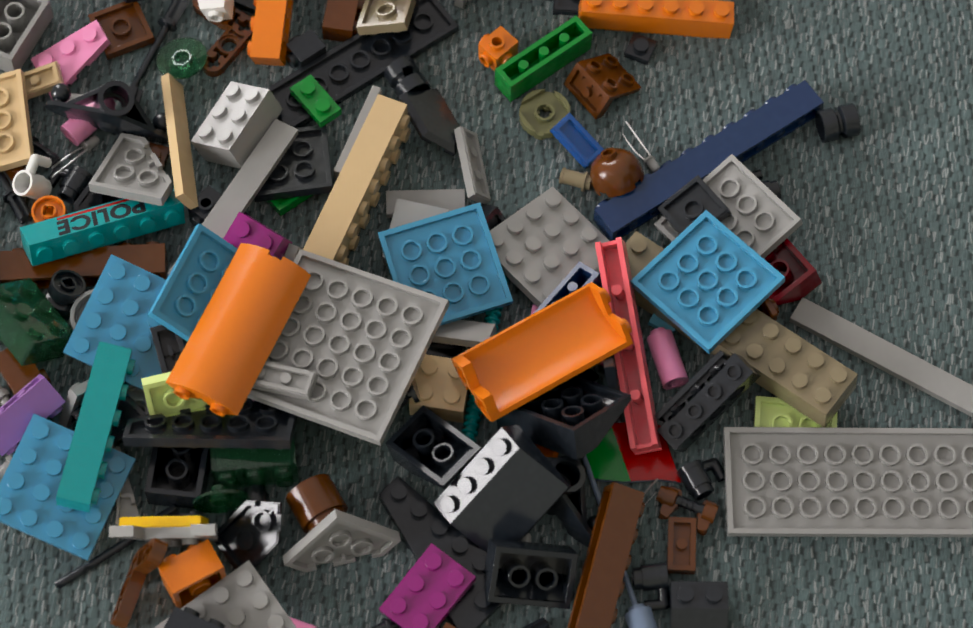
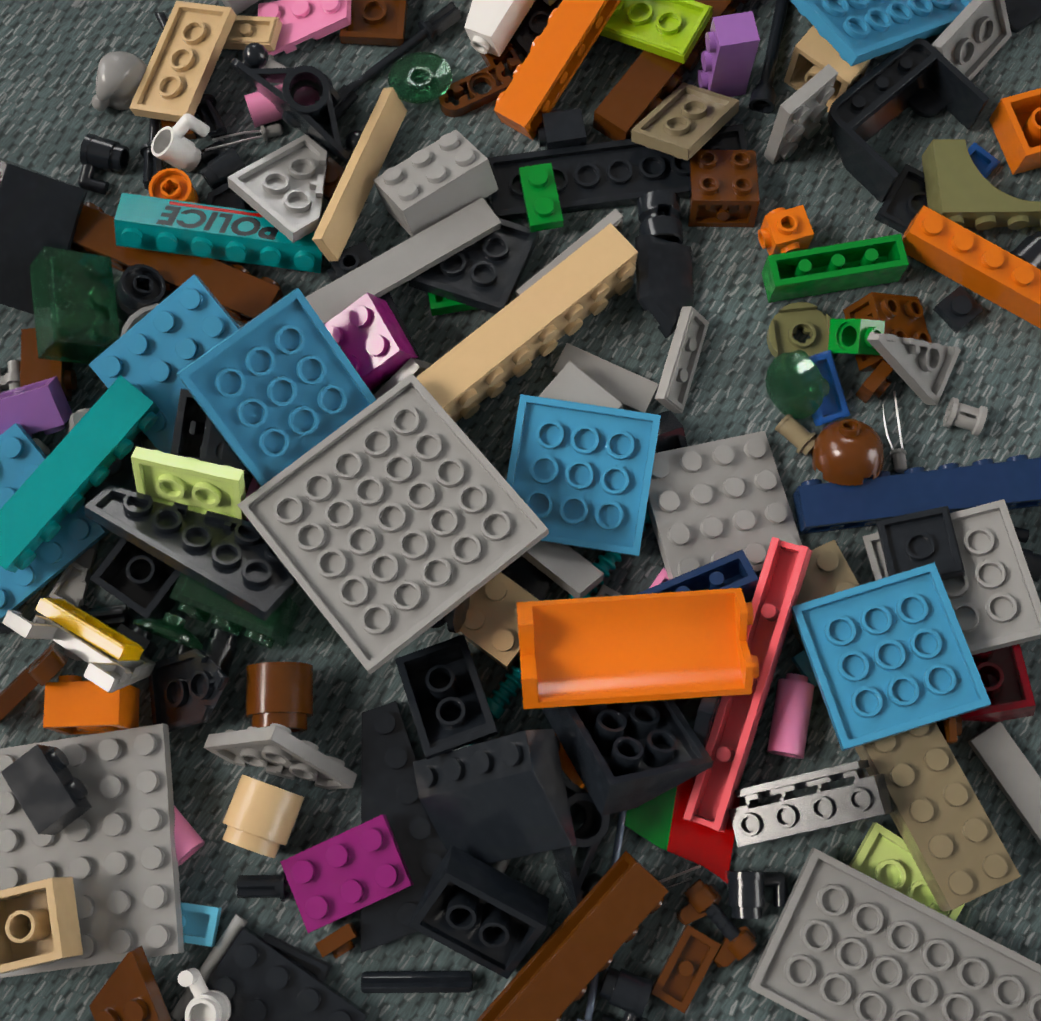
camera: 30 degrees right, 10 degrees up
(238, 329) = (277, 443): orange cylinder -> none
(286, 380) = (291, 522): light grey tile -> none
(349, 586) = (261, 816): none -> tan piece
(440, 39) = (723, 188): none -> reddish brown bracket
(558, 145) = (796, 384): none -> clear green dish
(582, 95) = (851, 336): none -> green brick
(611, 121) = (876, 383): none -> reddish brown plate
(633, 94) = (919, 363): none -> light grey wing
(681, 116) = (965, 416): none -> light grey bush

